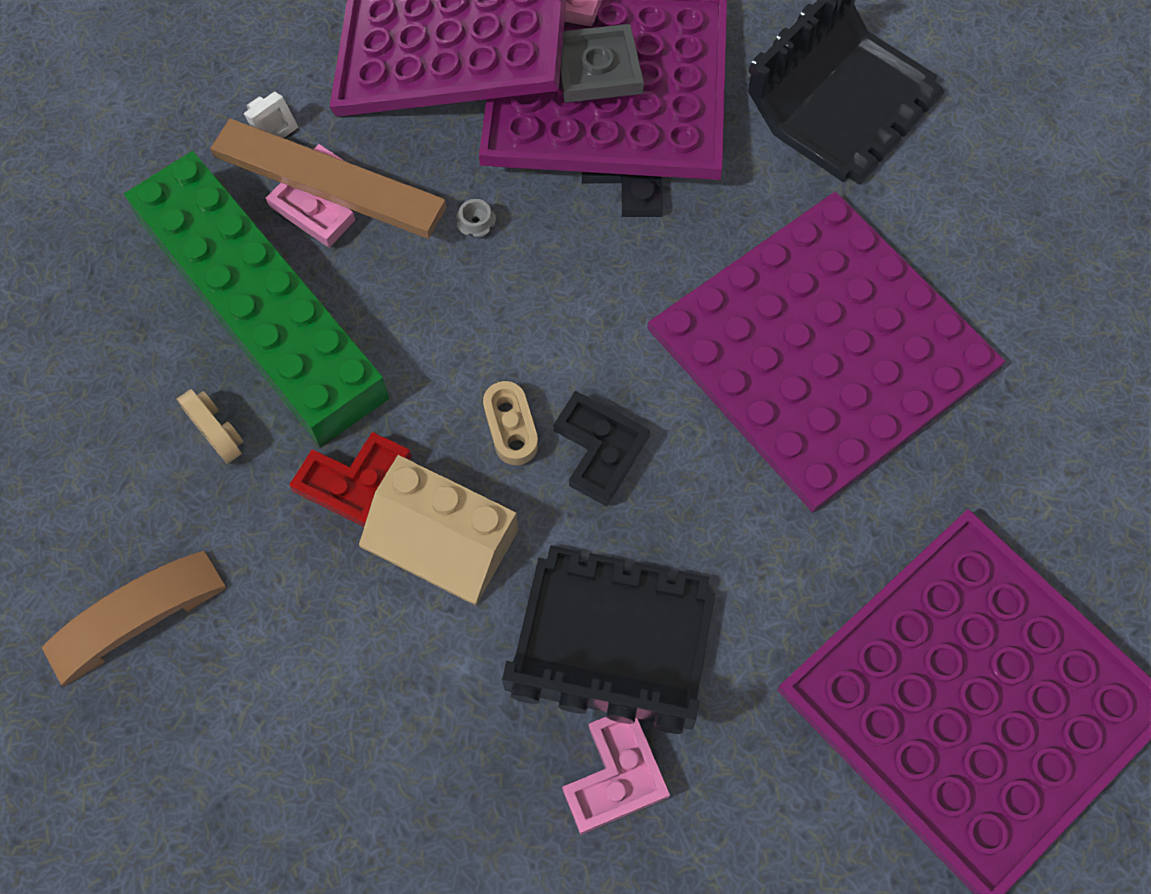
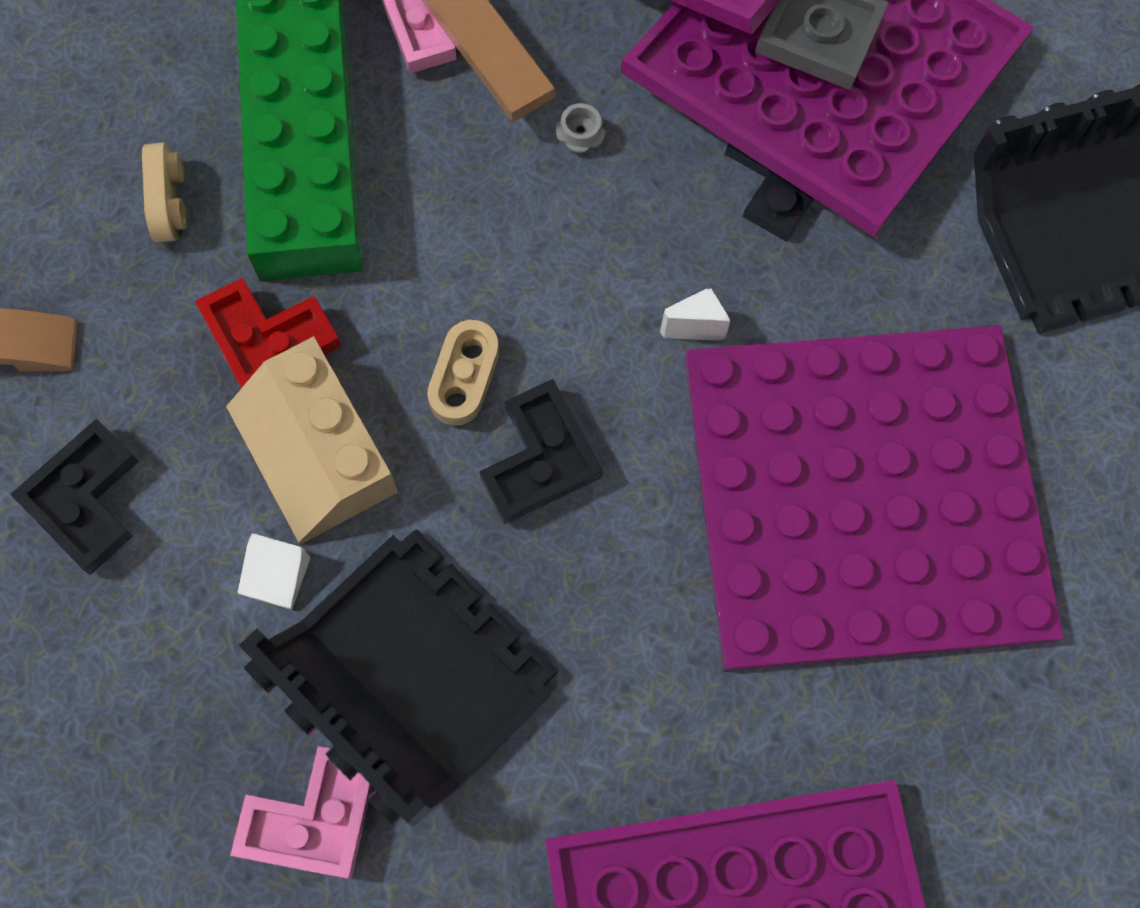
camera: 30 degrees right, 5 degrees up
(289, 673) = (66, 493): none -> black plate
(472, 632) = (273, 571): none -> white slope
(642, 297) = (696, 318): none -> white slope

